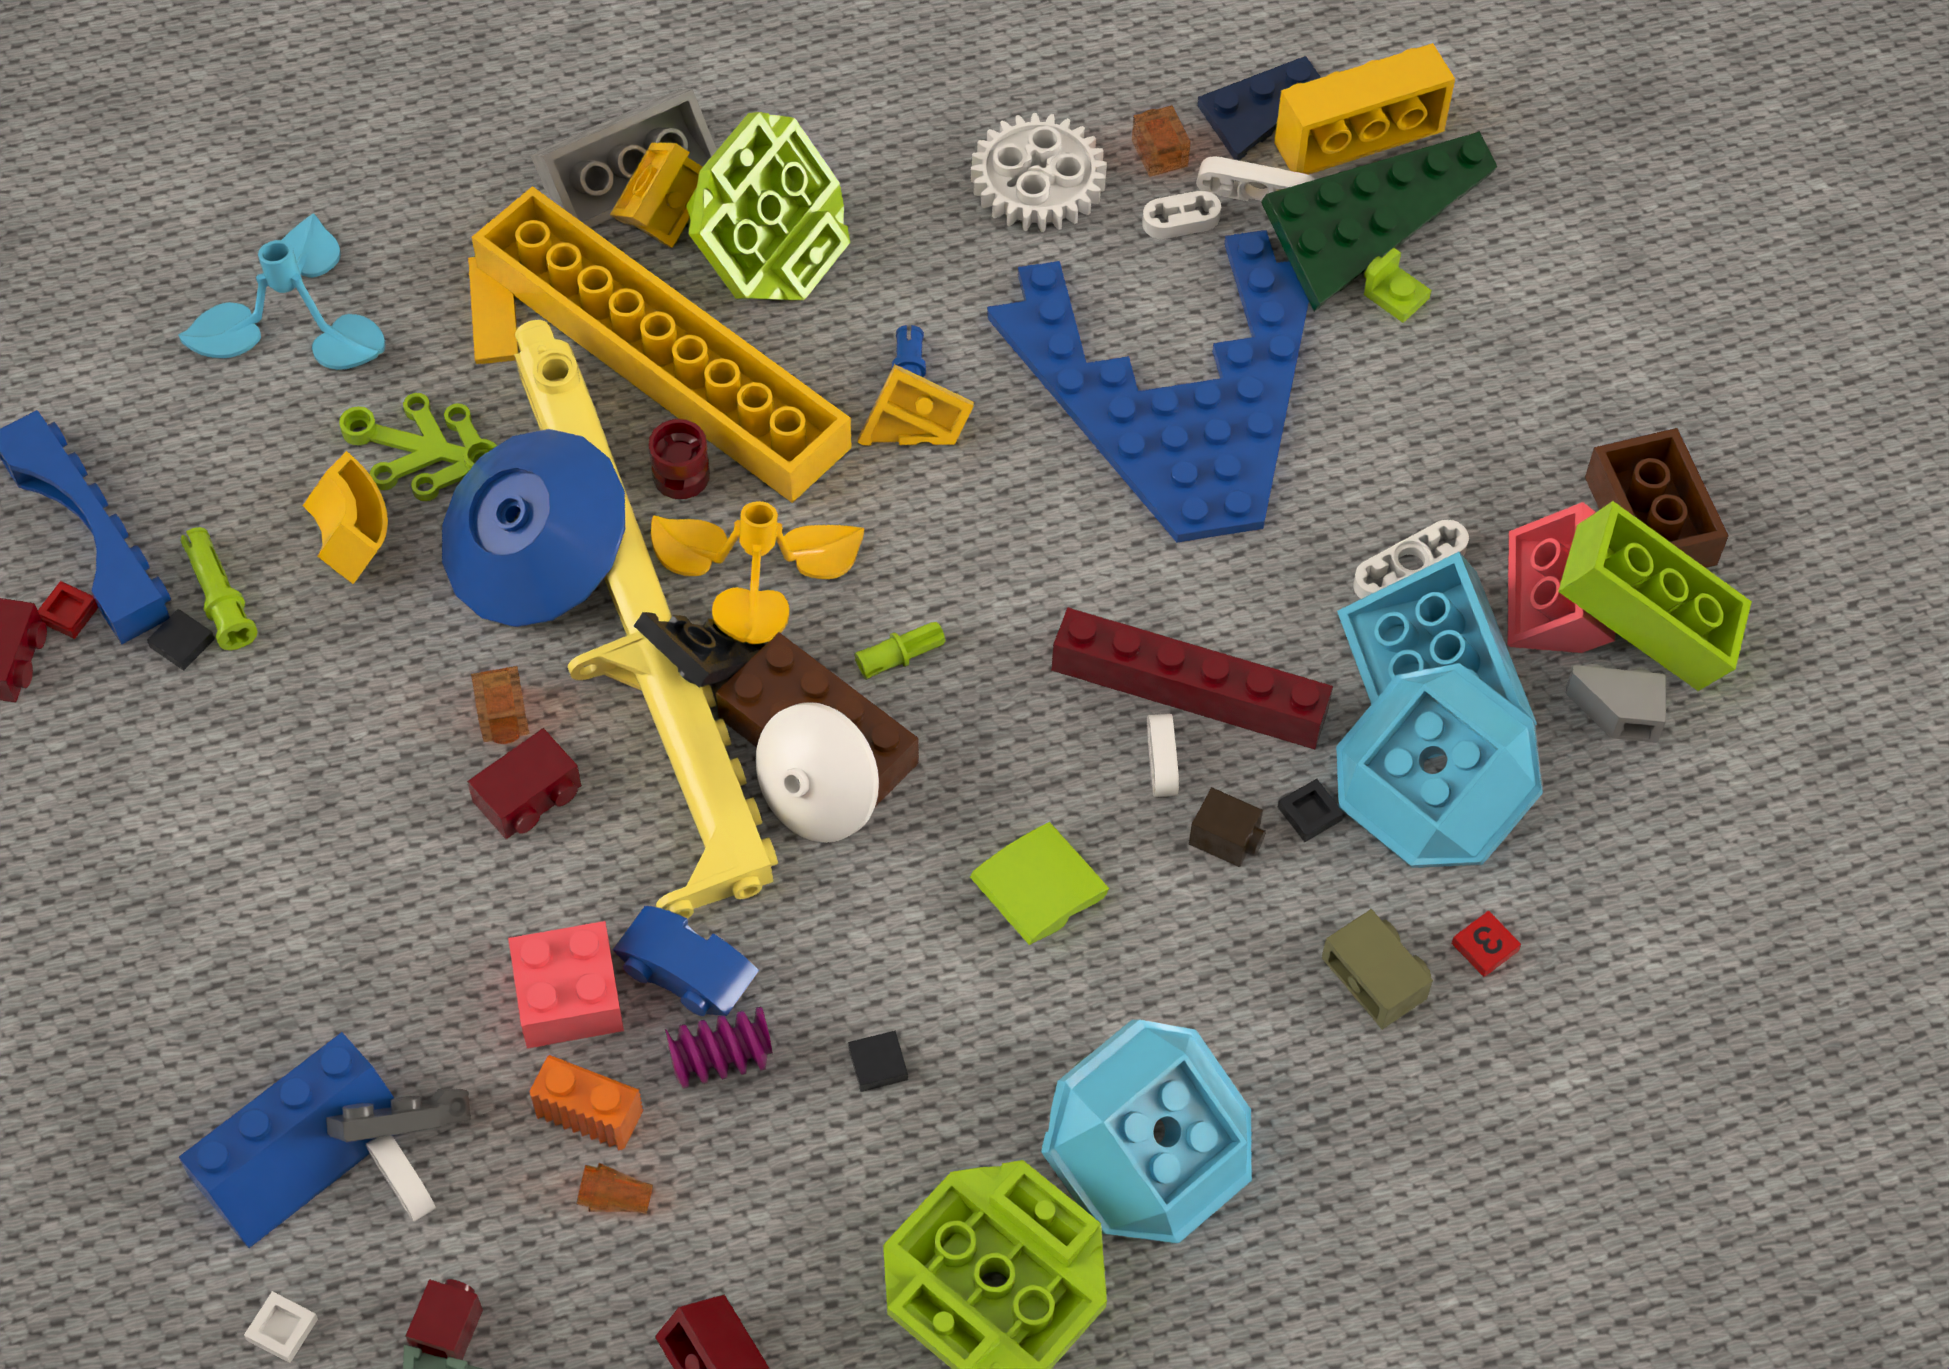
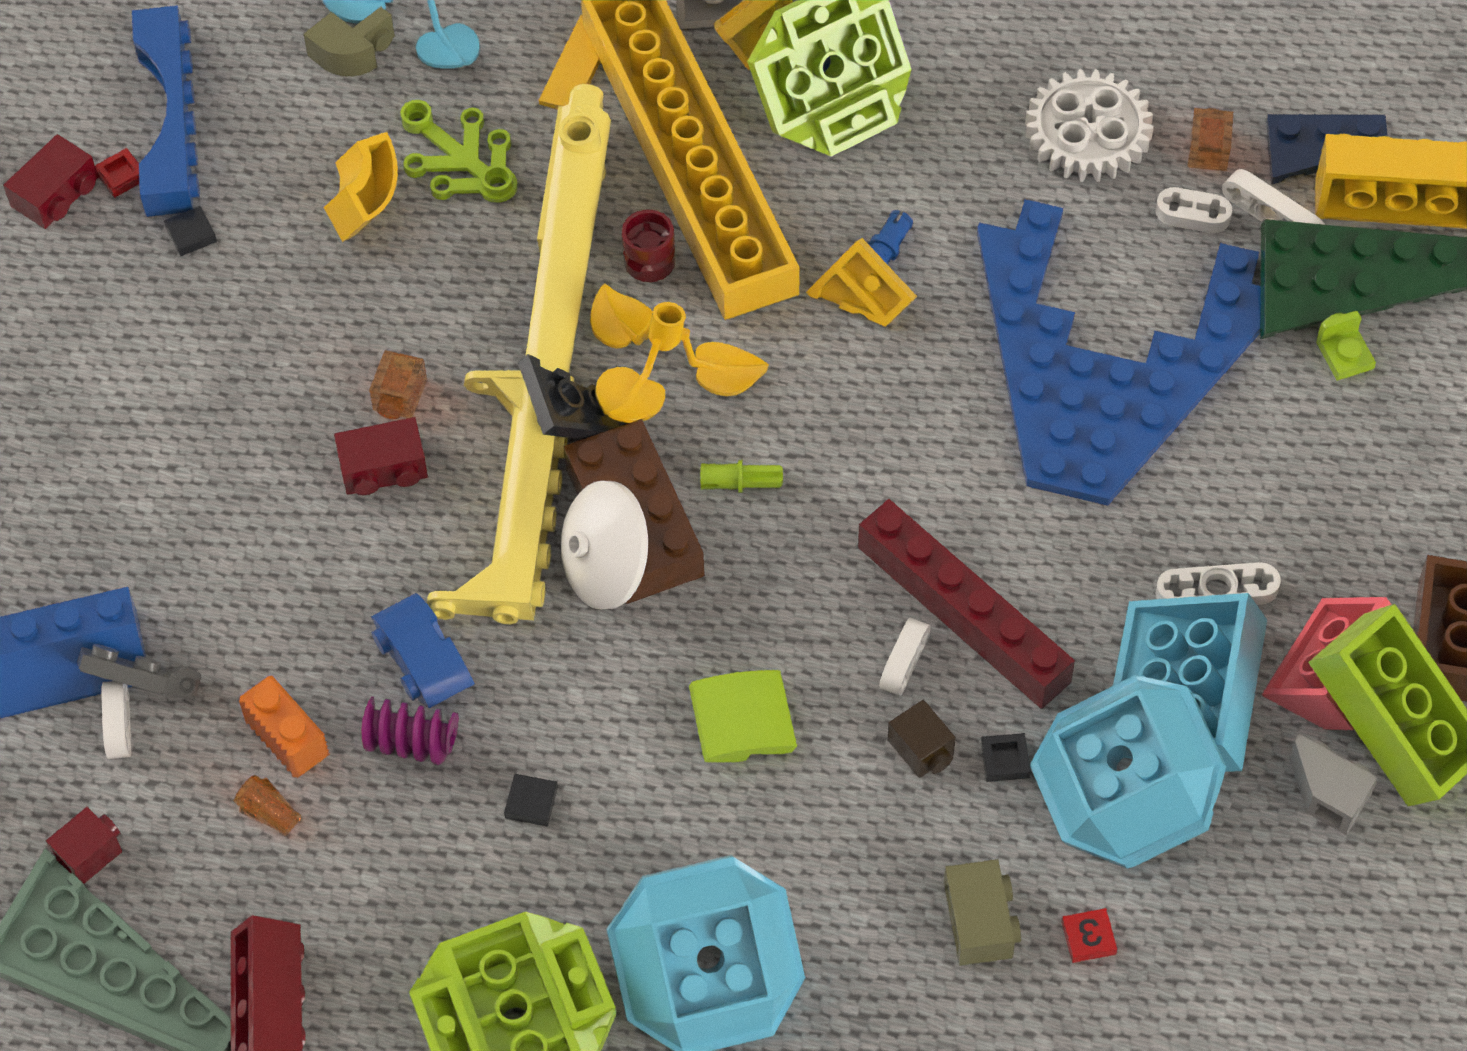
camera: 30 degrees right, 0 degrees up
(222, 603) = (235, 215): lime pin -> none
(243, 386) = (348, 49): none -> olive brick
(557, 545) = (499, 253): blue dish -> none
(565, 984) = (320, 627): coral brick -> none

